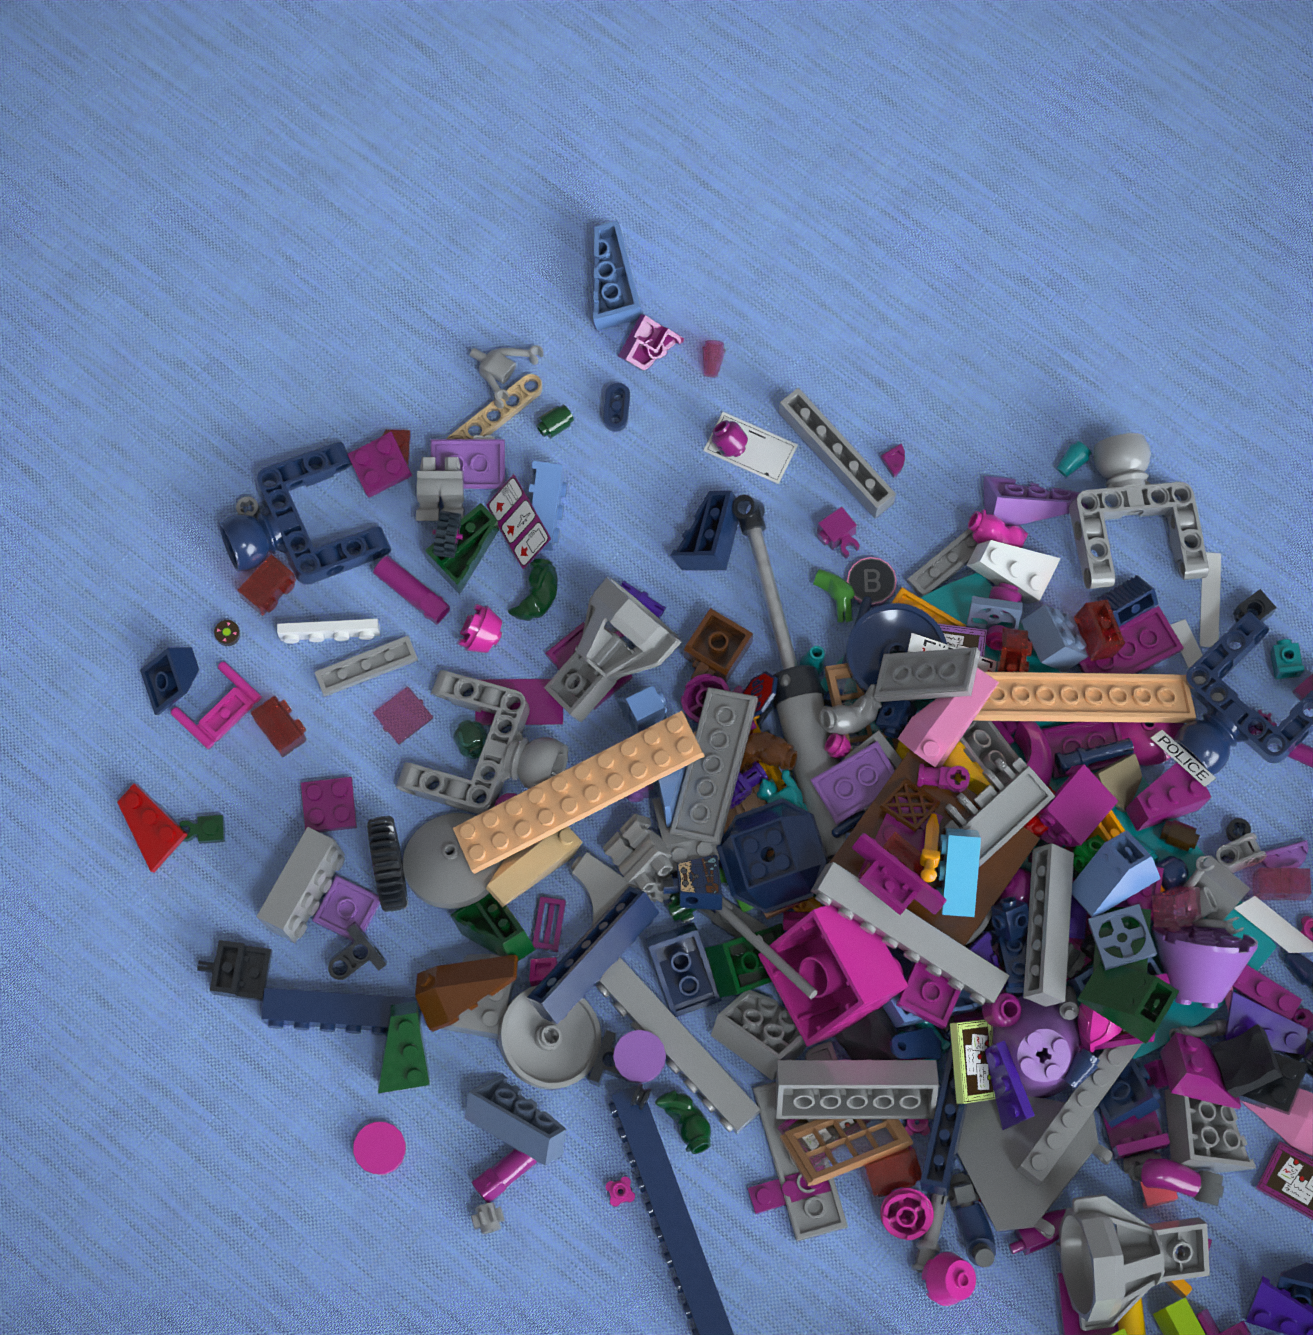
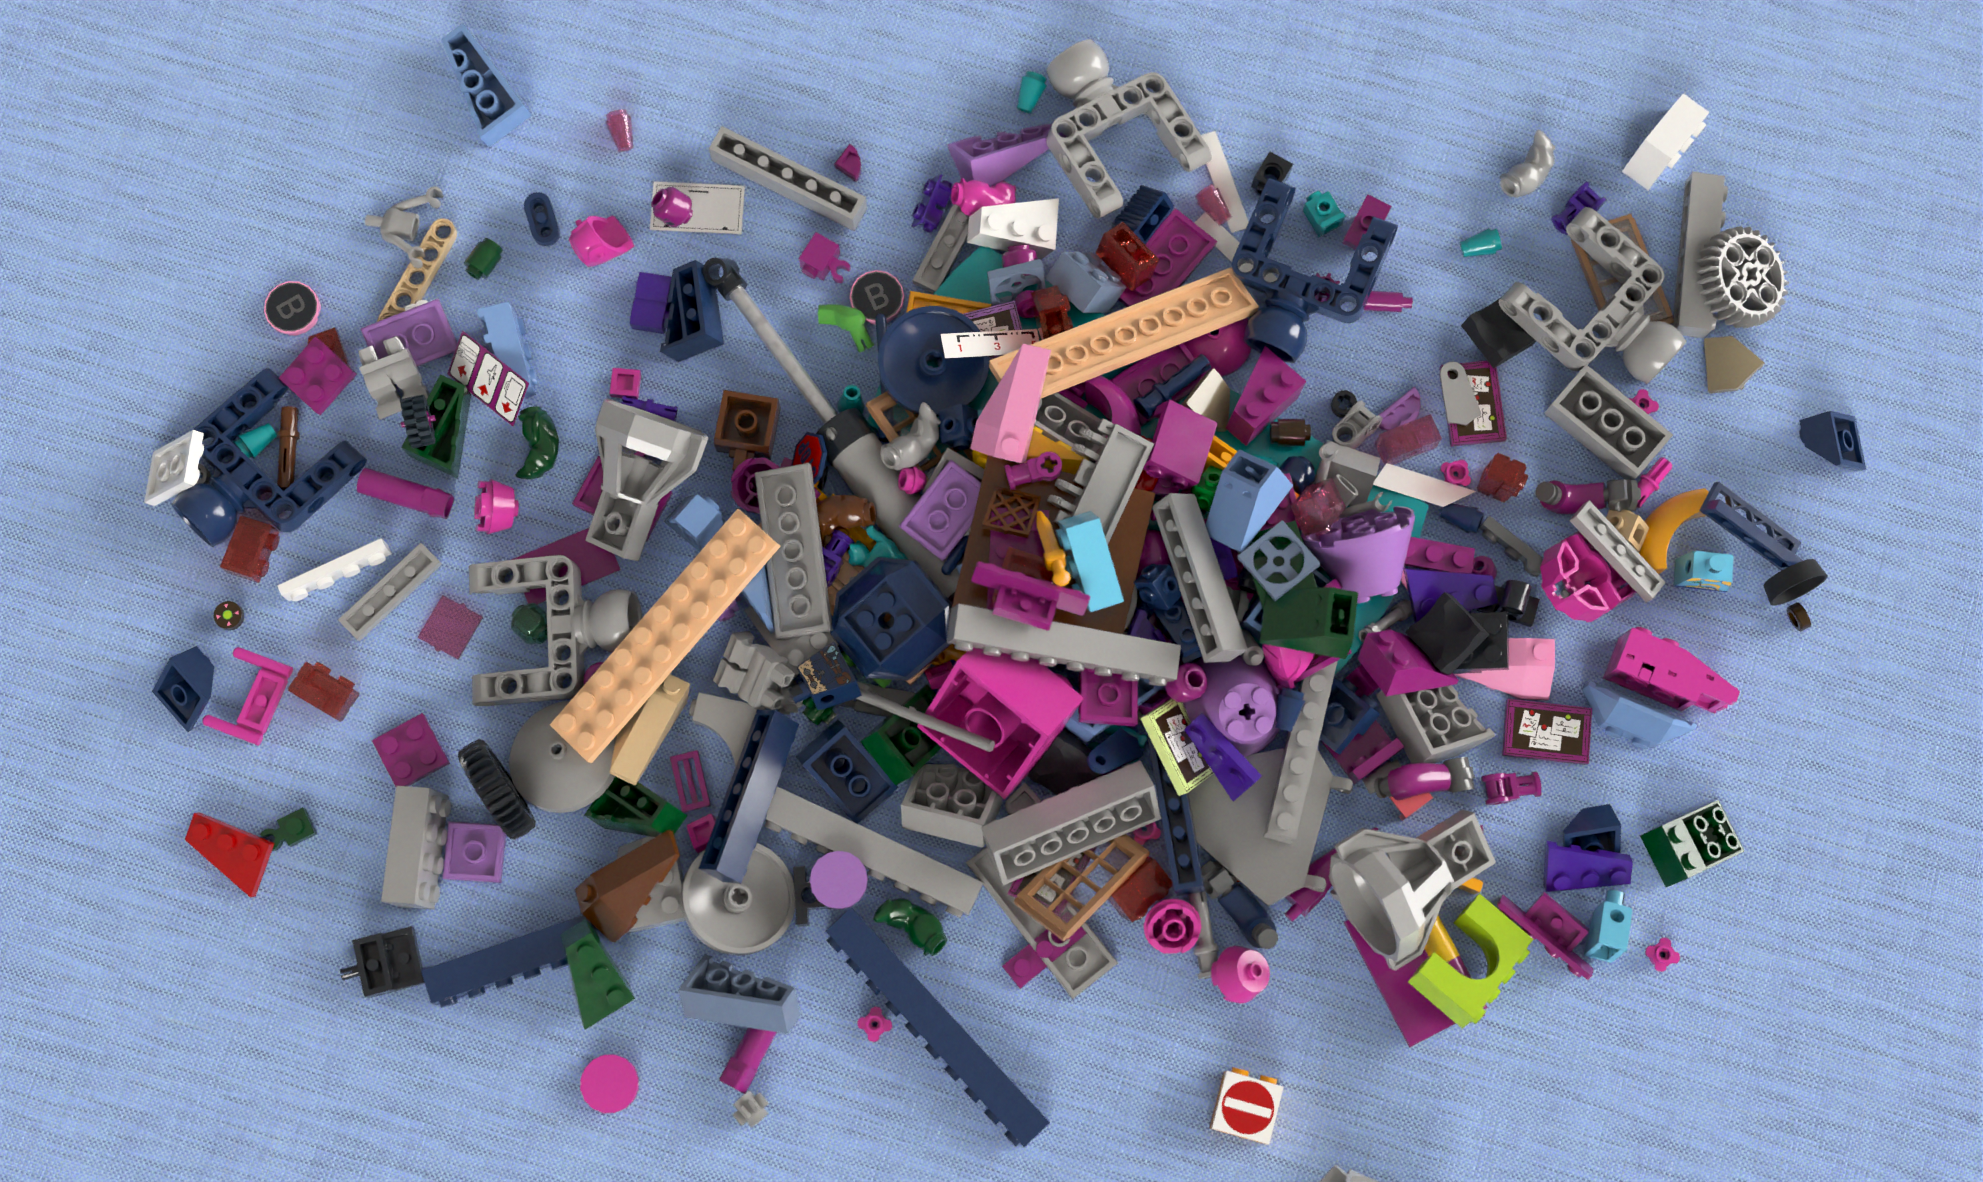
camera: 25 degrees left, 5 degrees up
(234, 494) = (174, 468): none -> white plate
(308, 497) = (255, 440): none -> teal cone
(335, 505) = (287, 446): none -> reddish brown pin
(348, 956) = (502, 903): black tile -> none
(381, 401) = (292, 308): none -> black tile
(630, 570) = (625, 383): none -> dark pink plate
(640, 1096) = (857, 920): black bush -> none
(647, 343) = (547, 140): magenta slope -> none
(657, 443) = (599, 240): none -> dark pink helmet
(679, 512) = (651, 303): none -> dark purple brick
(927, 674) = (974, 371): light grey tile -> none
(957, 514) = (926, 212): none -> dark purple hinge
(1183, 758) = (1263, 353): white sticker -> none
(1193, 615) = (1213, 204): none -> clear pink cone
(1247, 1217) = (1505, 787): none -> magenta connector

